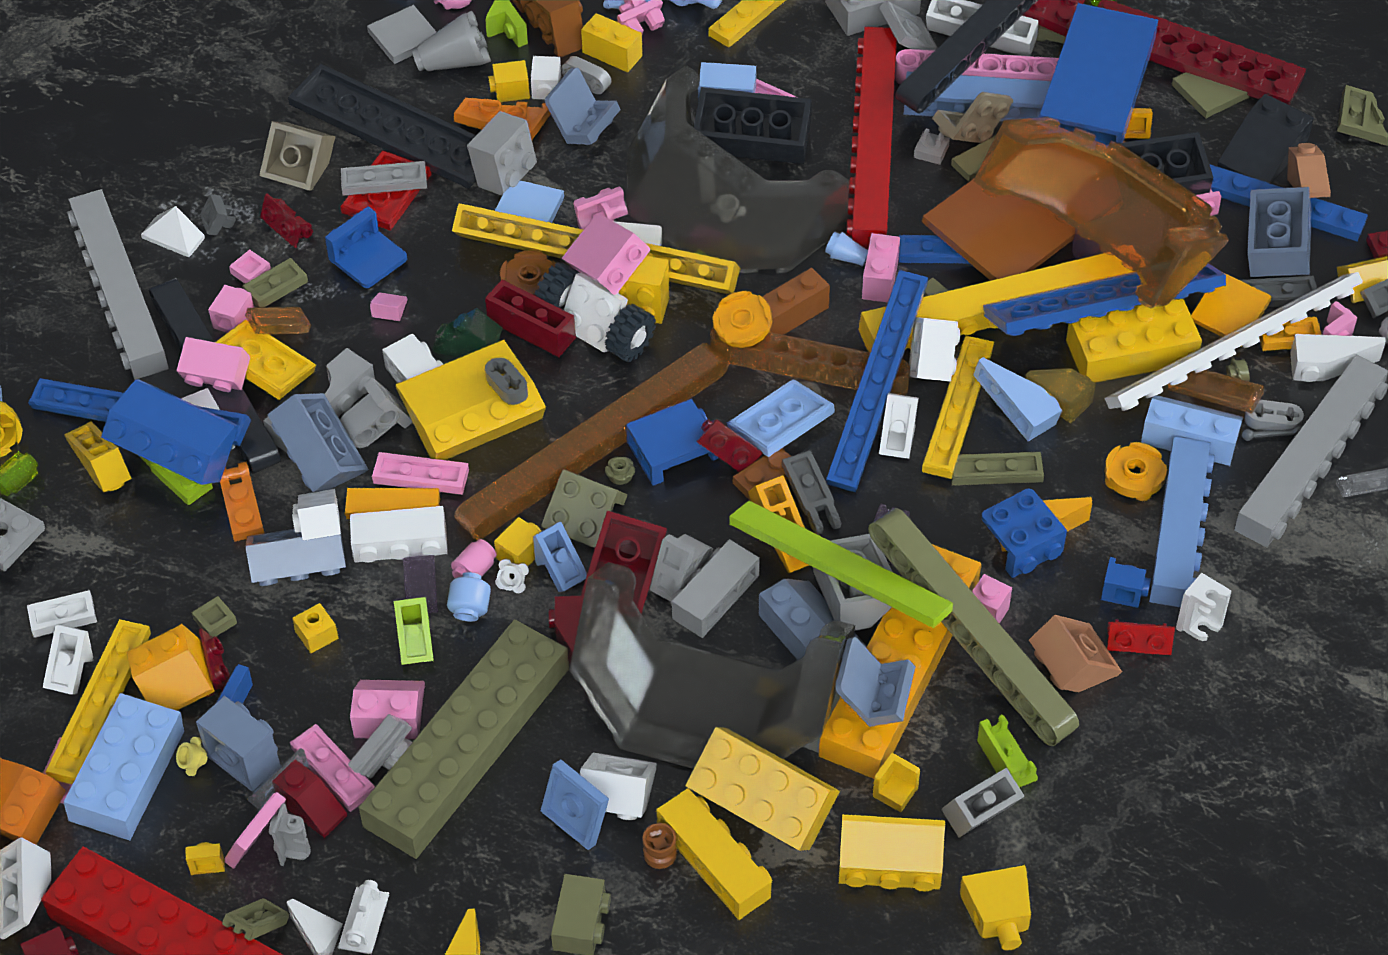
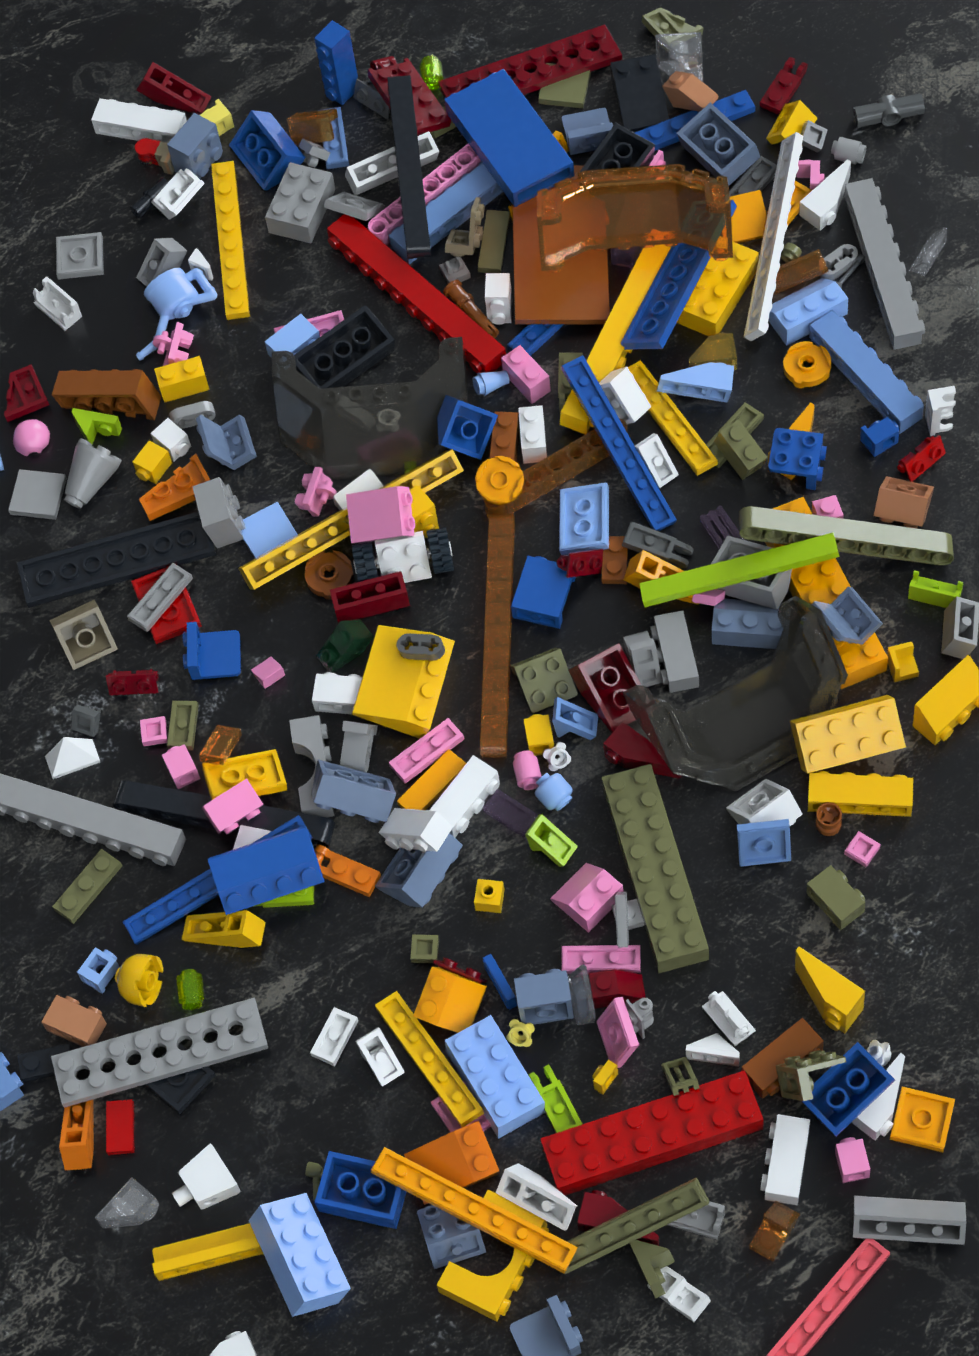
camera: 40 degrees left, 10 degrees up
(56, 332) = (87, 886): none -> olive plate
(145, 836) = (557, 1103): none -> lime hinge
(623, 475) = (533, 643): olive plate -> none
(658, 901) = (862, 849): none -> bright pink tile
(769, 256) = (464, 427): none -> blue slope
(798, 570) = (710, 597): none -> bright pink tile
(825, 314) = (532, 434): none -> white brick
(905, 176) = (466, 303): none -> dark orange pin
(930, 185) = (498, 298): none -> white brick
(980, 479) = (740, 449): none -> olive brick
(1182, 122) = (586, 129): none -> sand blue bracket
(1340, 138) = (680, 53): none -> clear slope

